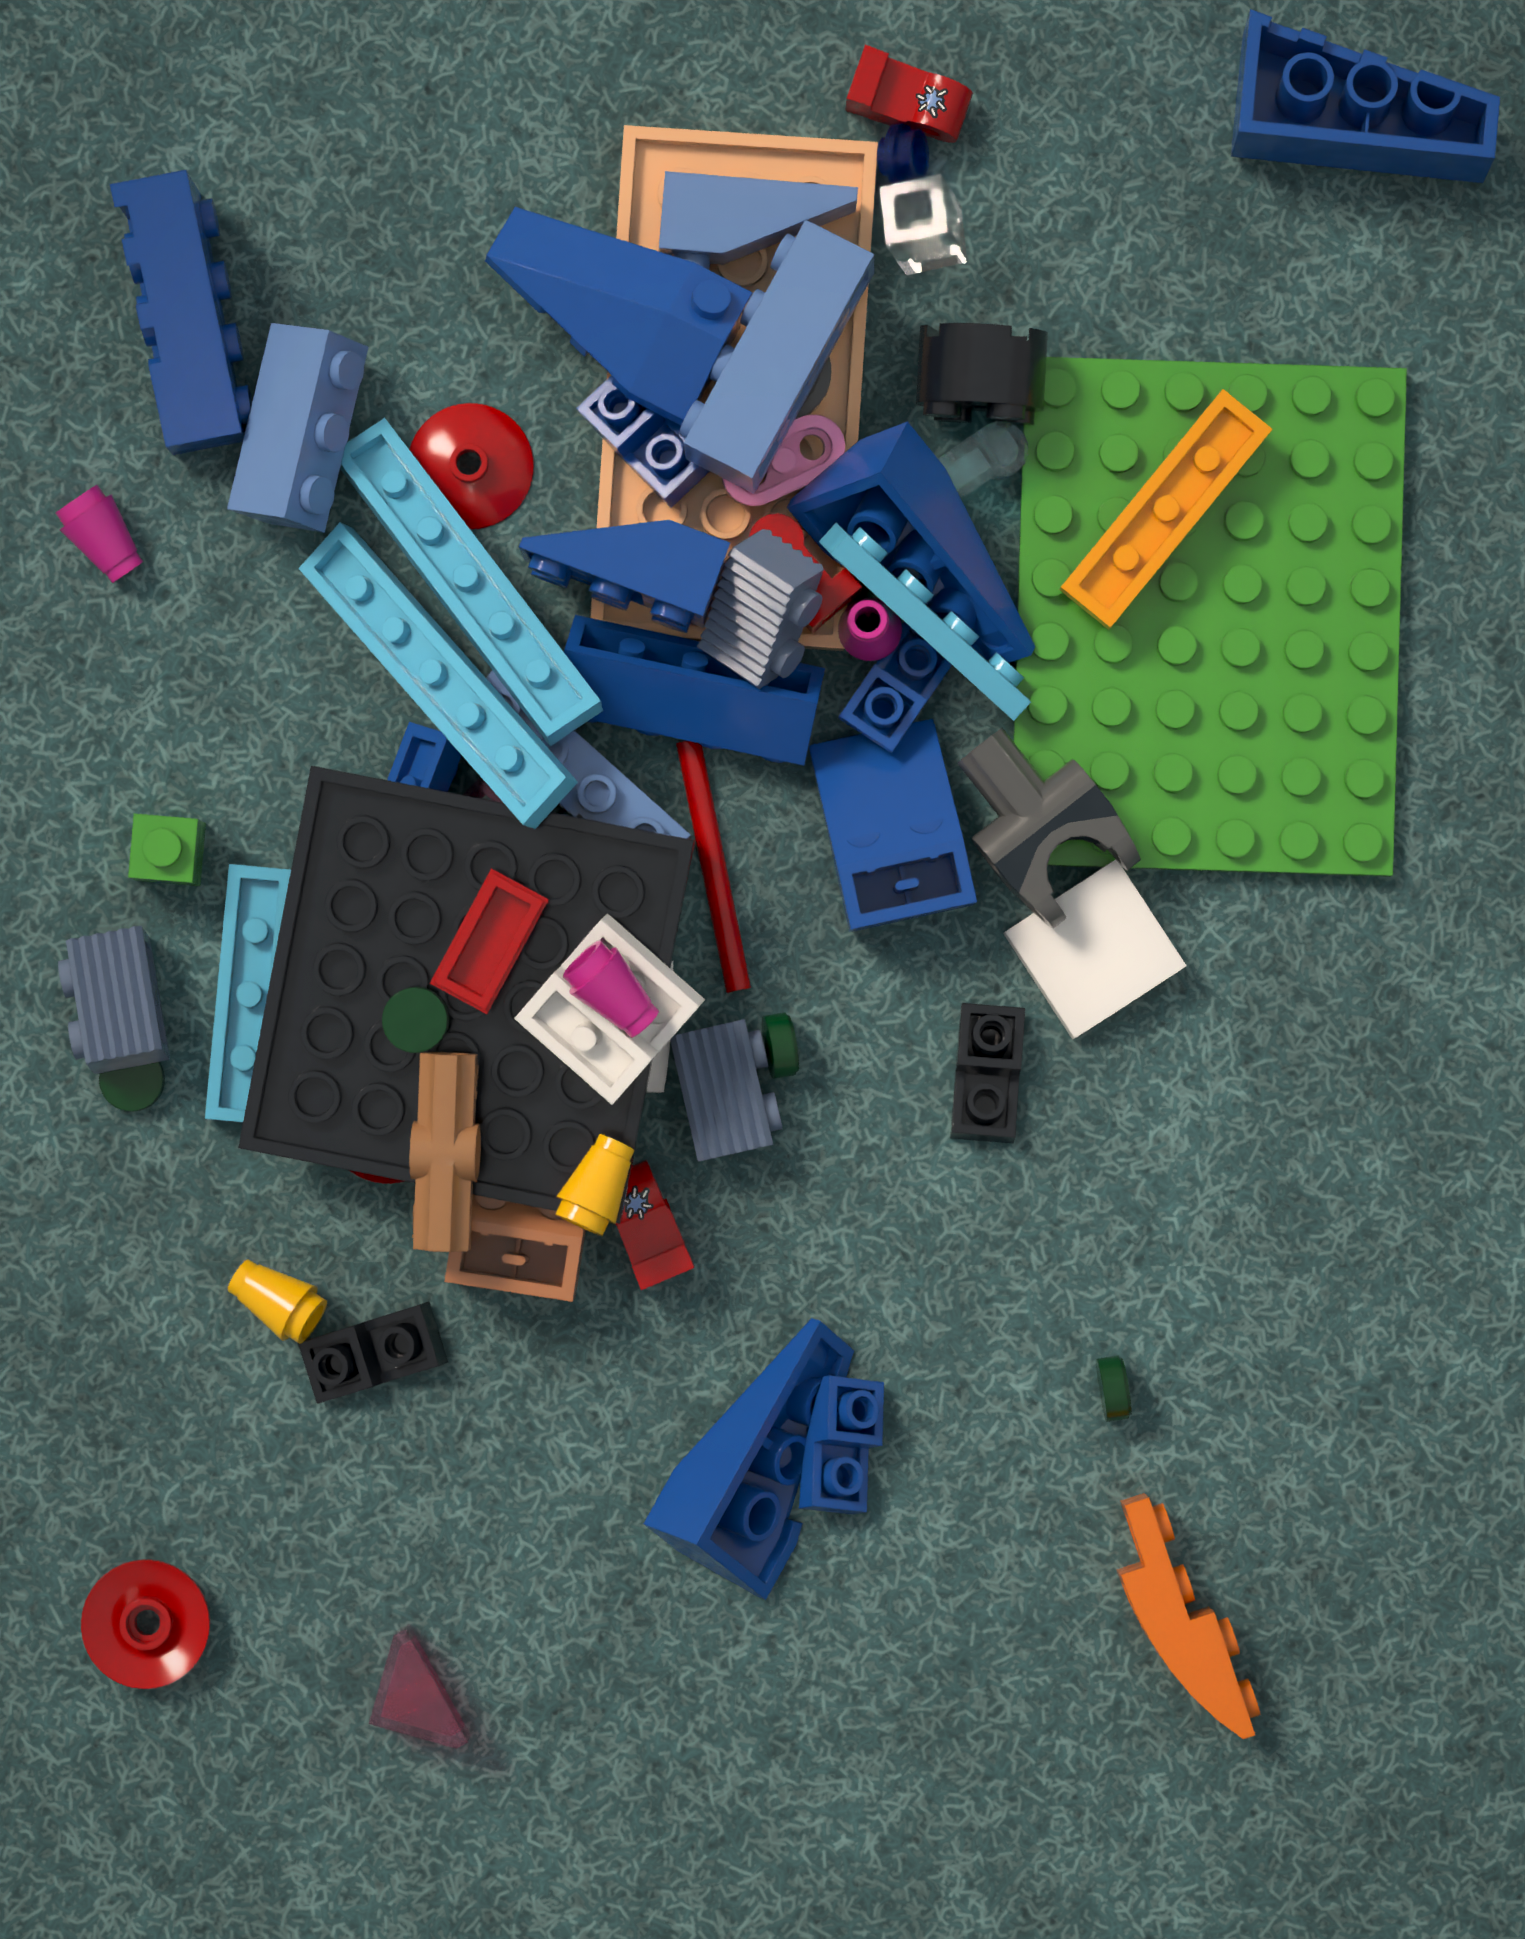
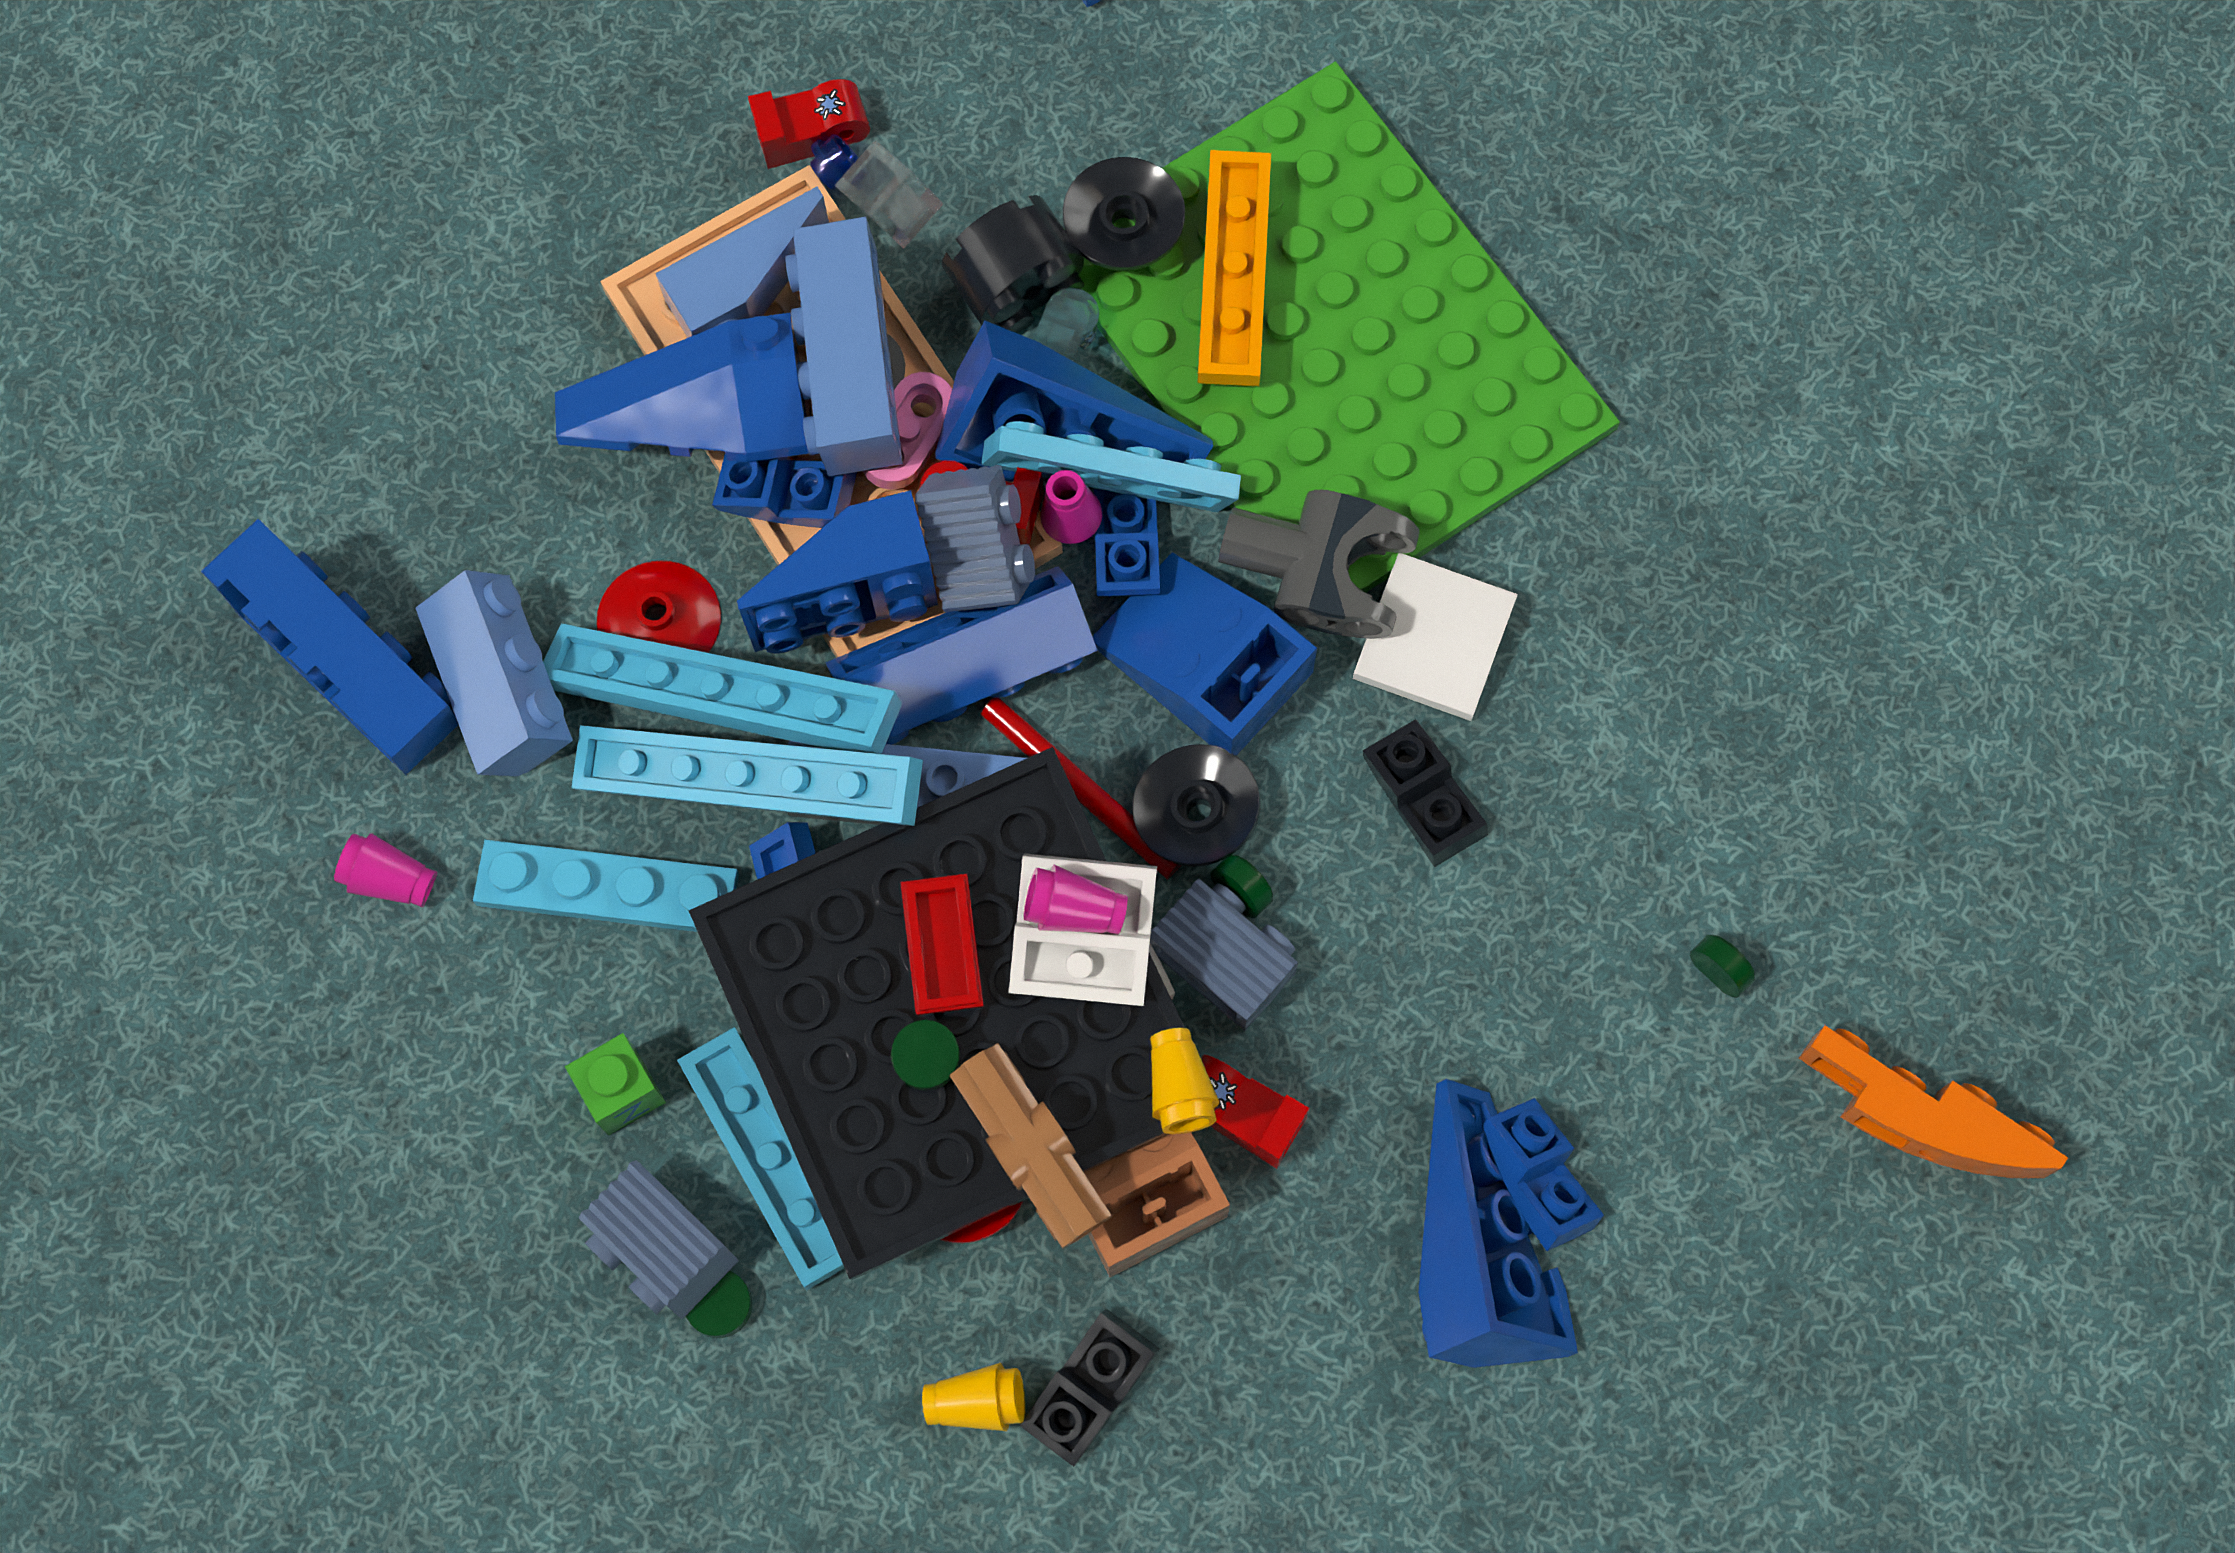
camera: 30 degrees left, 15 degrees down
(270, 672) = (597, 885): none -> medium azure plate
(782, 922) = (1192, 778): none -> black dish
(1112, 361) = (1124, 190): none -> black dish

